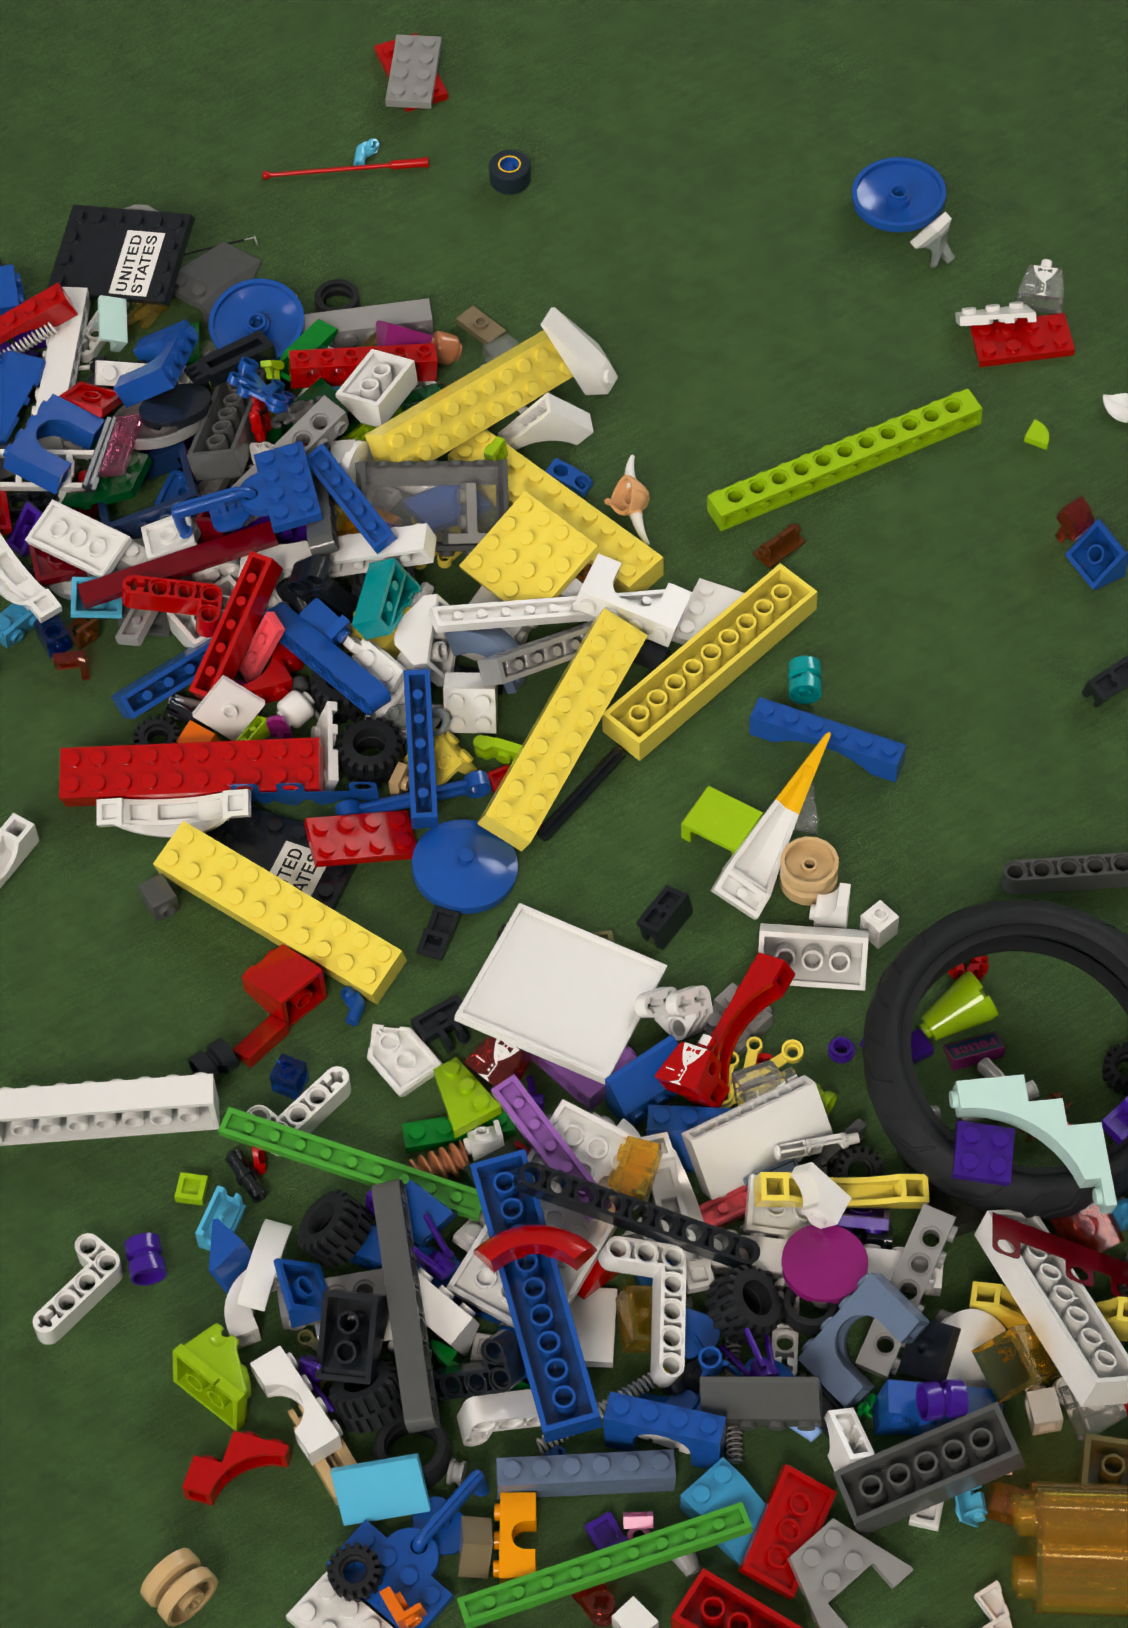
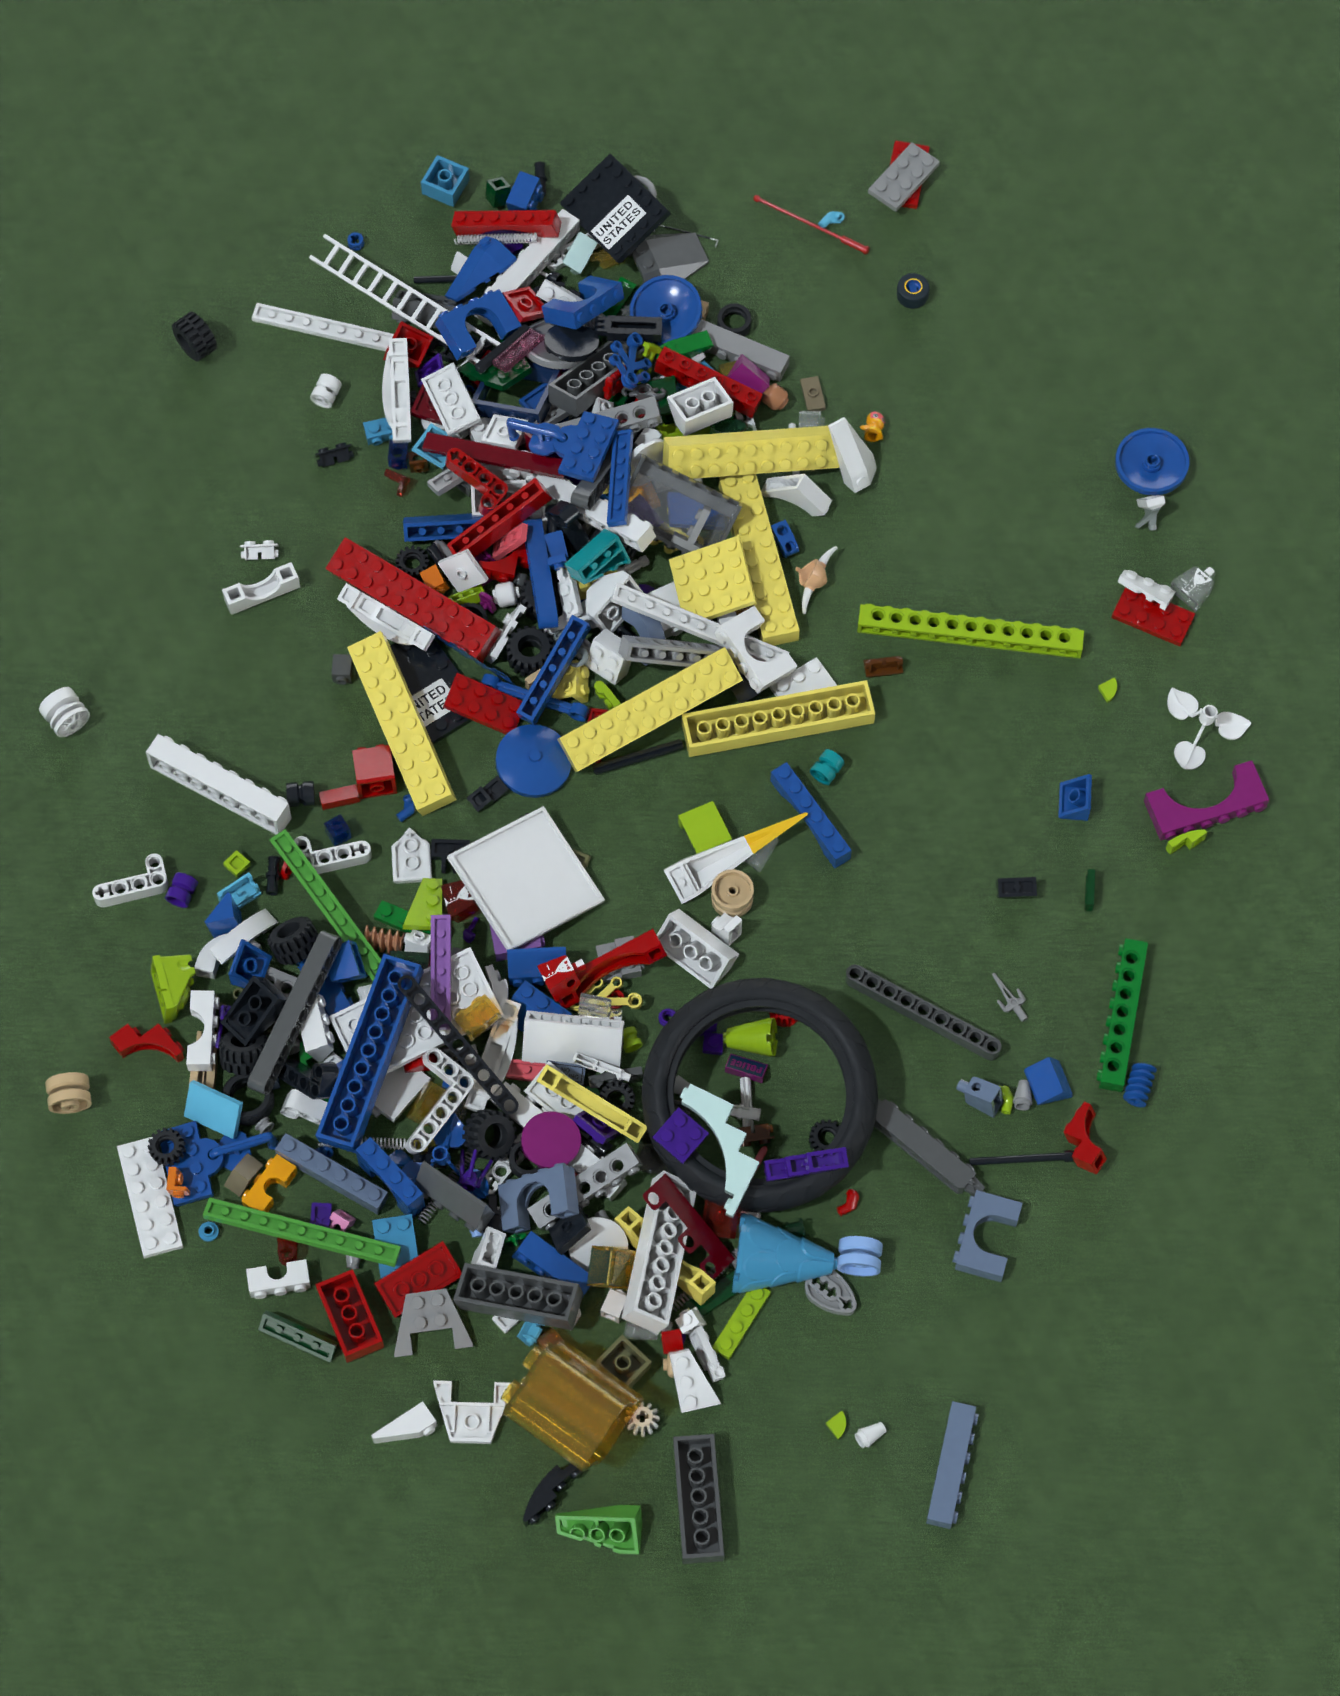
camera: 30 degrees right, 10 degrees up
(437, 1262) = (335, 999): dark purple plant -> none
(496, 450) = (744, 495): lime plate -> none
(534, 1239) = (388, 1023): red brick -> none
(578, 316) = (875, 423): none -> light orange animal
(665, 916) = (626, 868): black hinge -> none
(680, 1012) = (584, 931): white piece -> none
(822, 1197) = (573, 1103): white arch -> none
(881, 924) = (749, 954): white brick -> none
(942, 1399) = (550, 1262): dark purple wheel -> none
(1074, 520) = (1076, 765): clear red brick -> none

